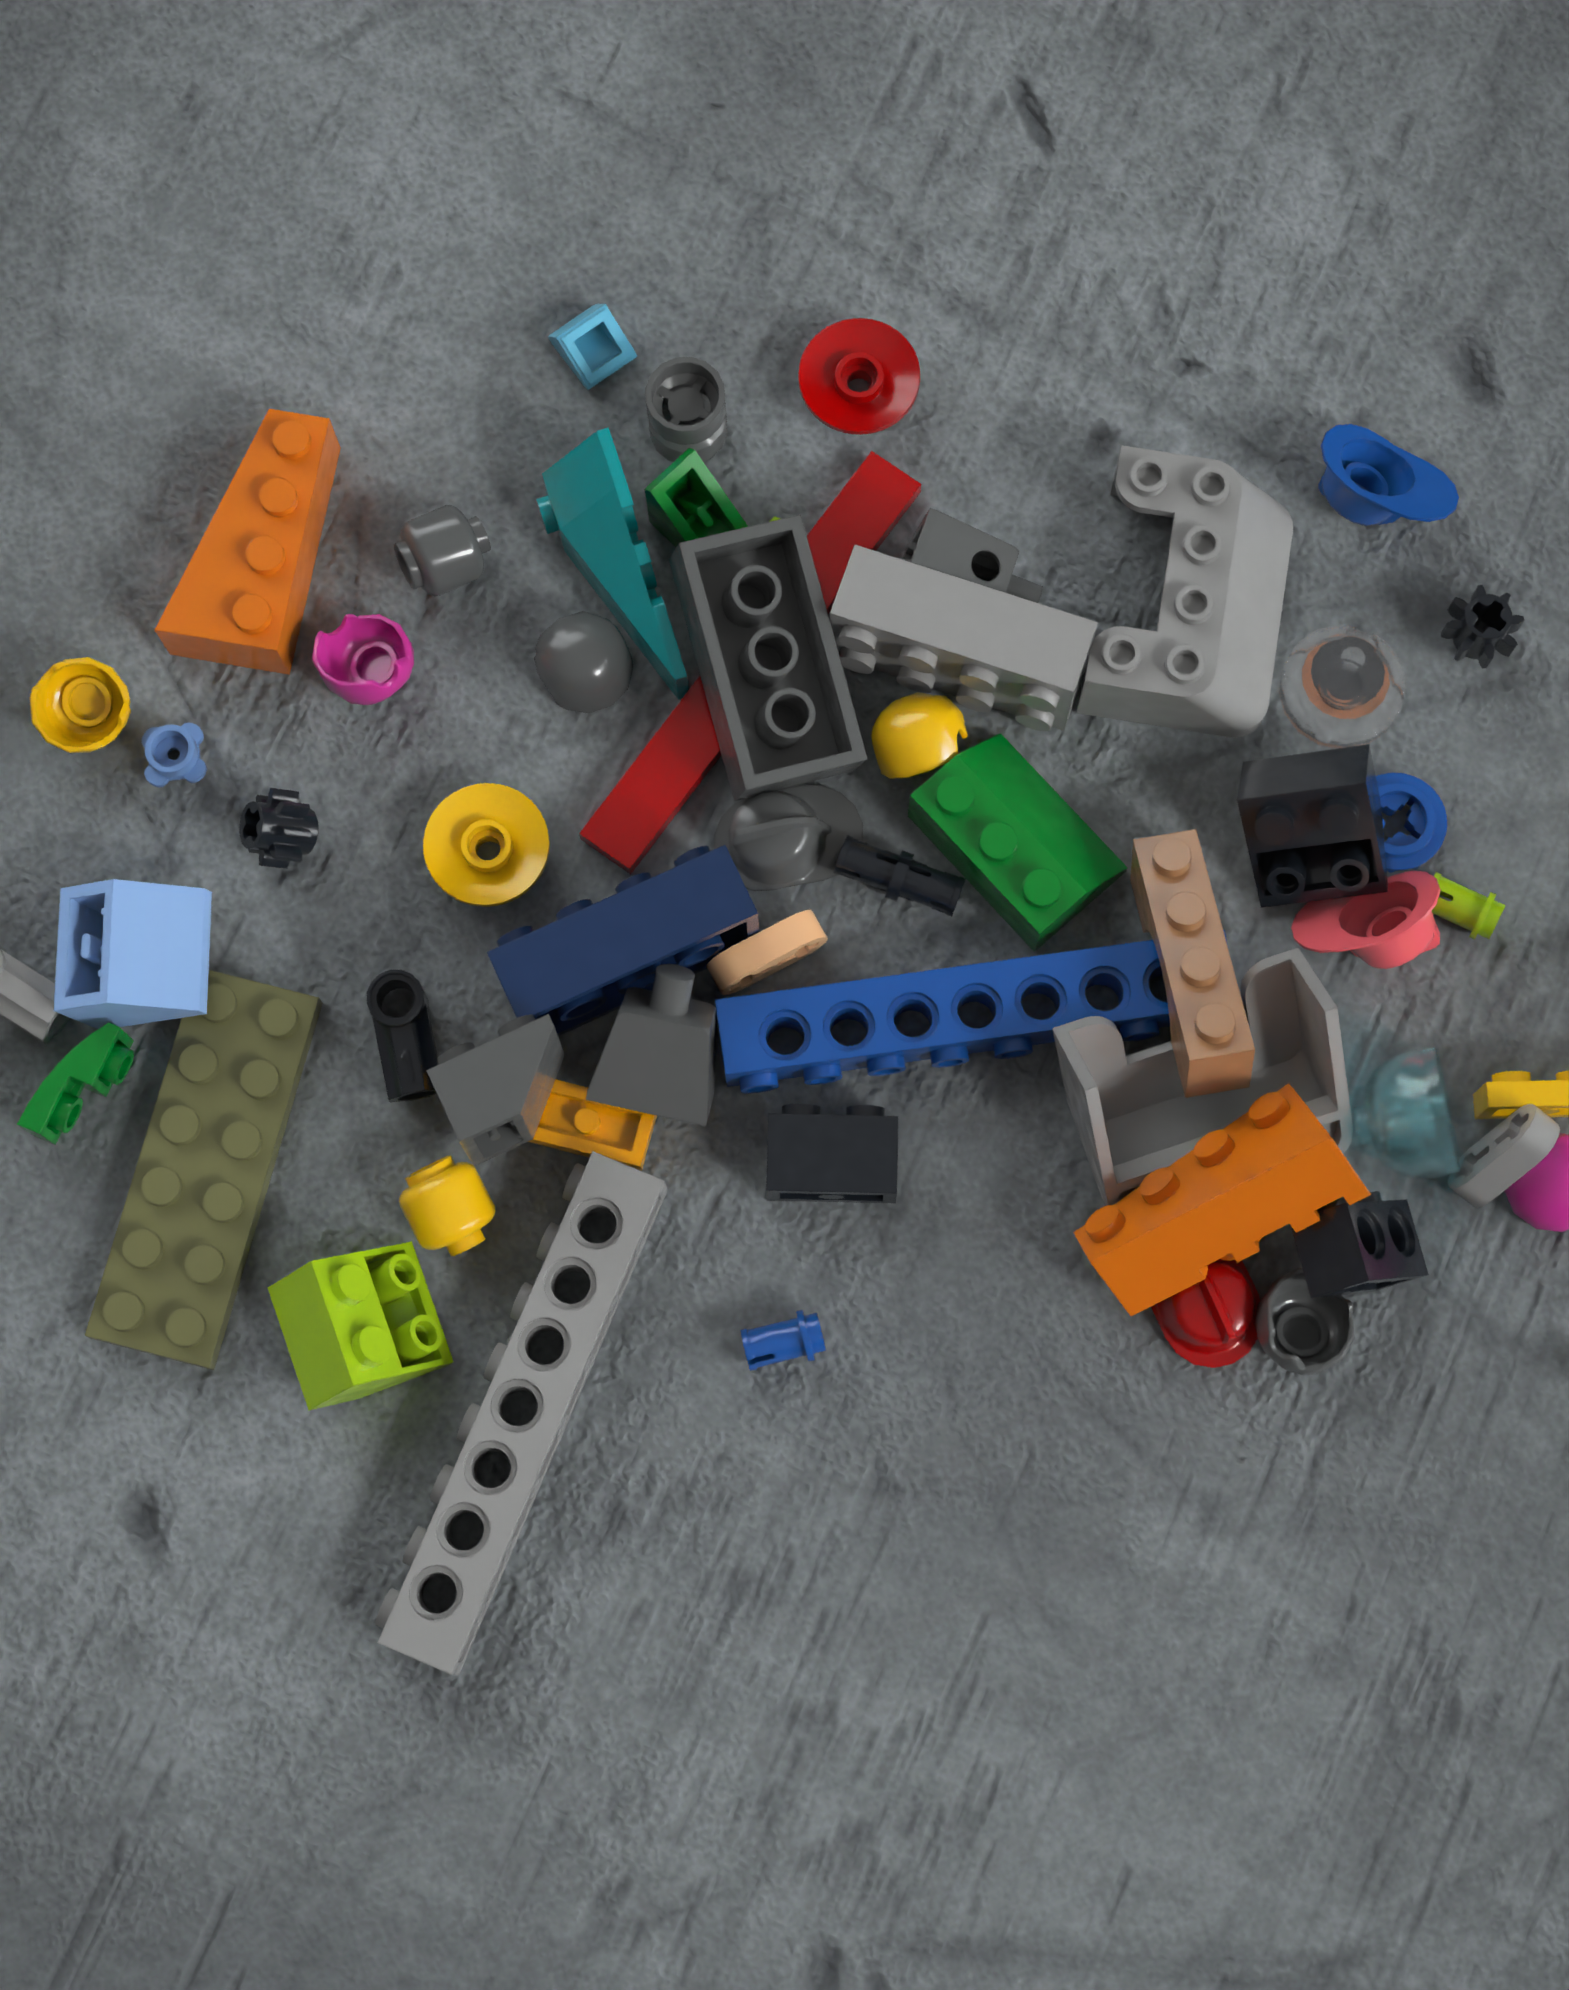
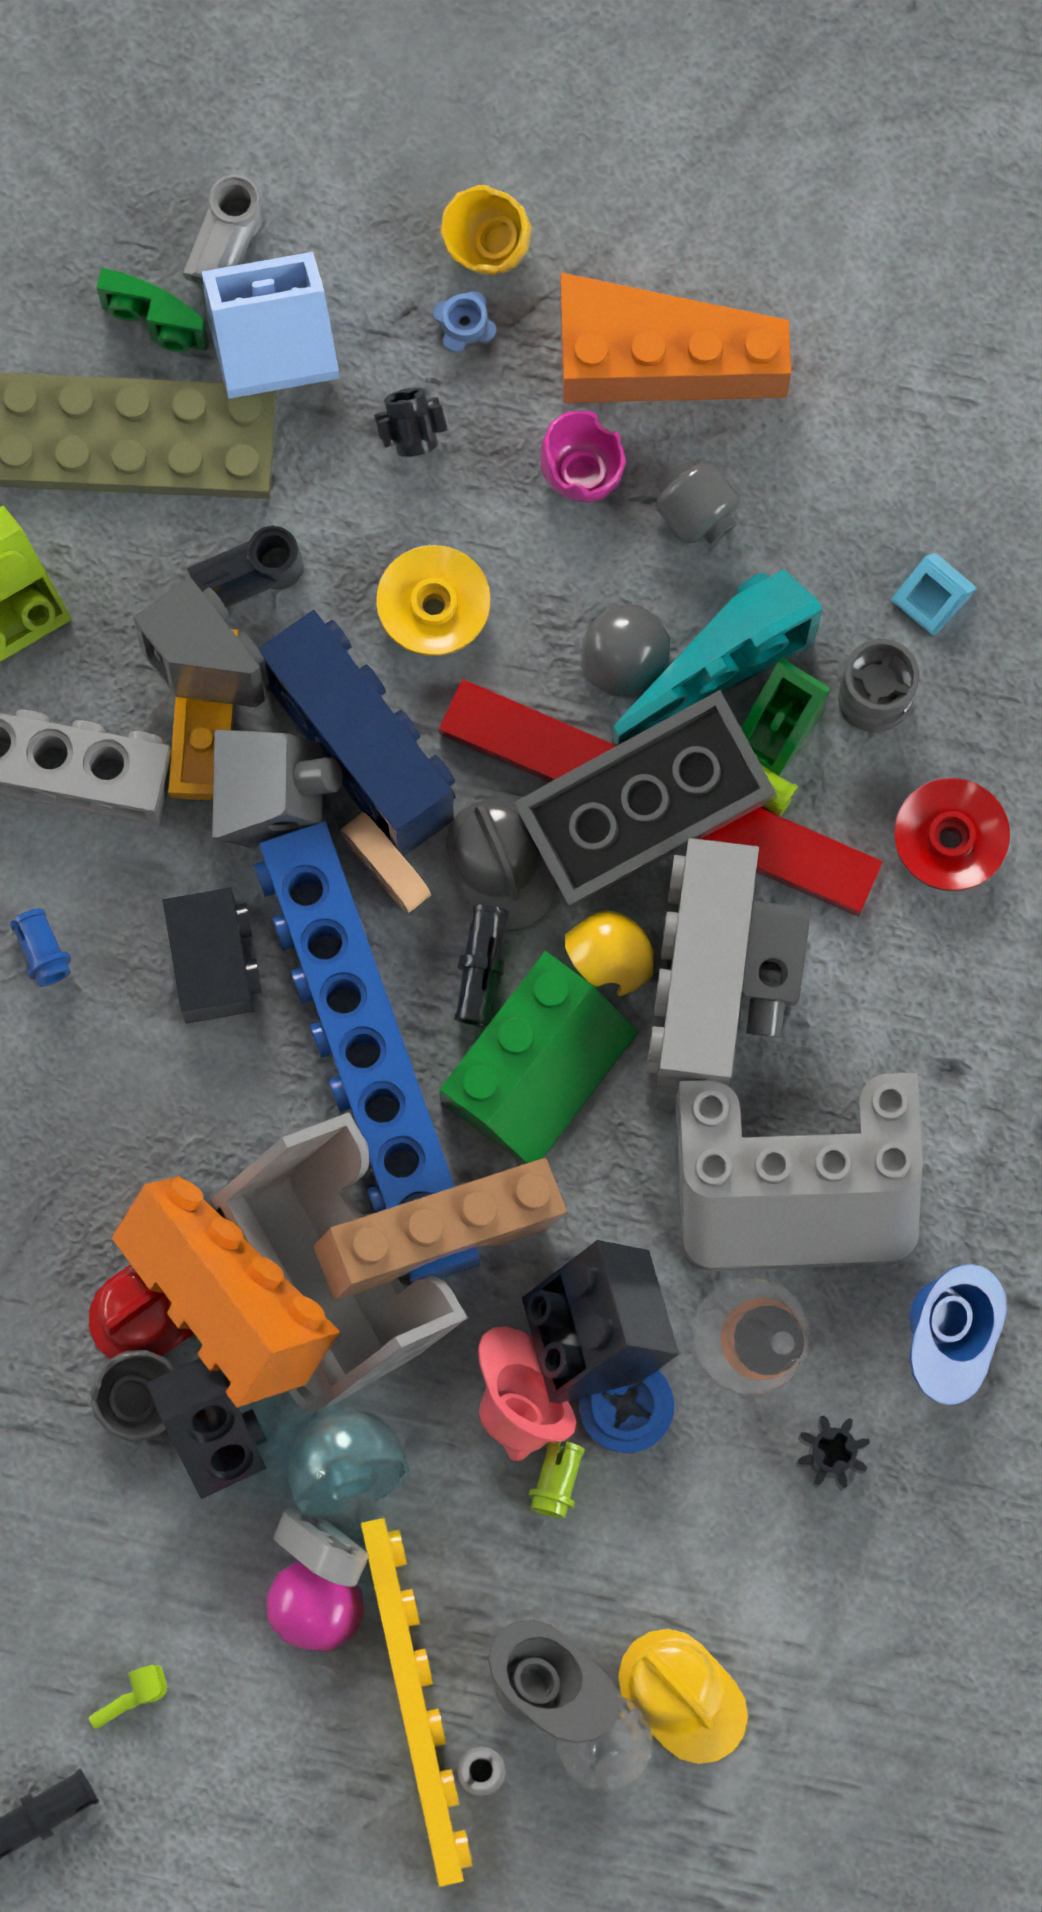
camera: 75 degrees right, 0 degrees up
(447, 1205) = (101, 638): yellow head -> none

